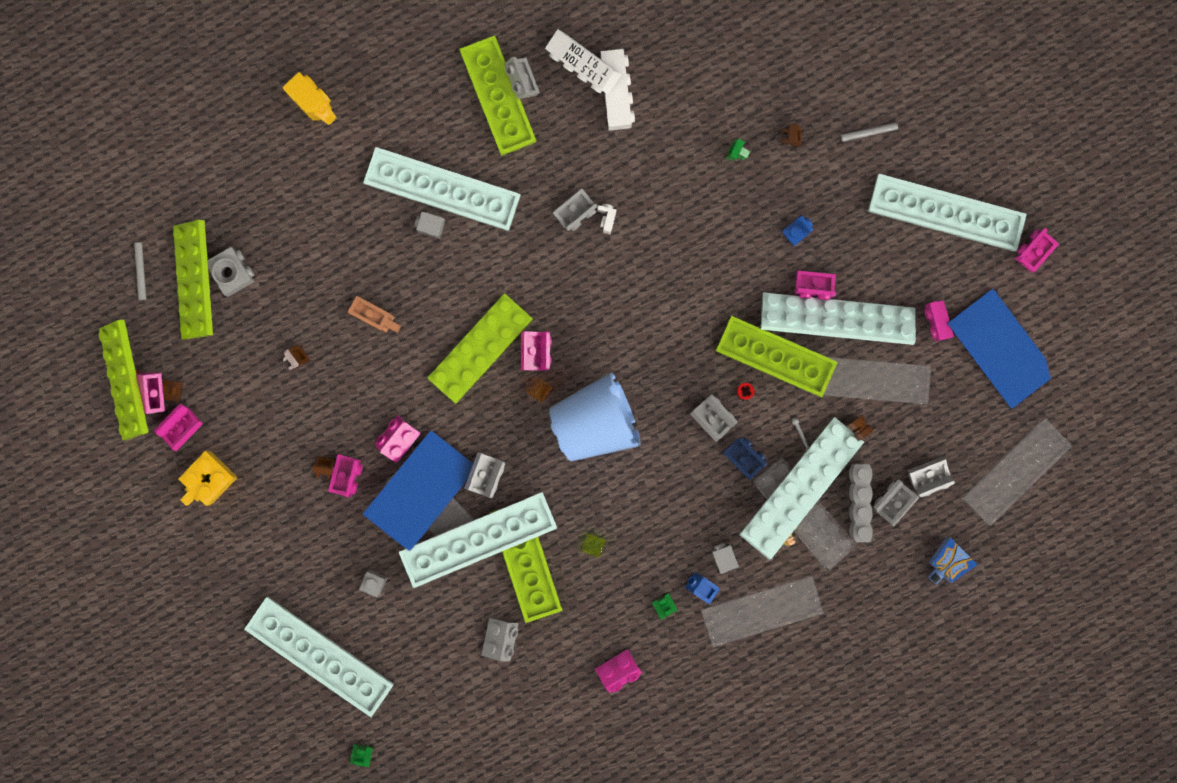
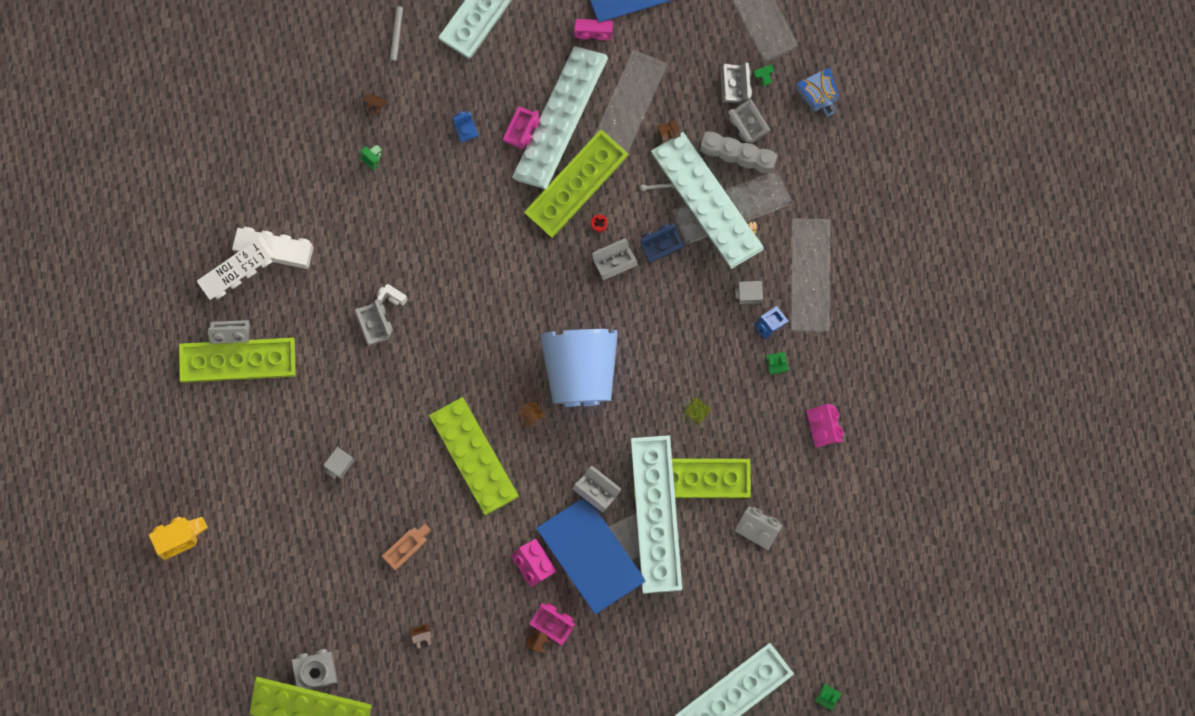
camera: 70 degrees left, 10 degrees down
(373, 583) = (665, 629): light grey brick -> none
(442, 189) = (307, 442): light aqua plate -> none
(535, 351) = (494, 403): dark pink bracket -> none
(948, 502) = (764, 74): none -> green tile

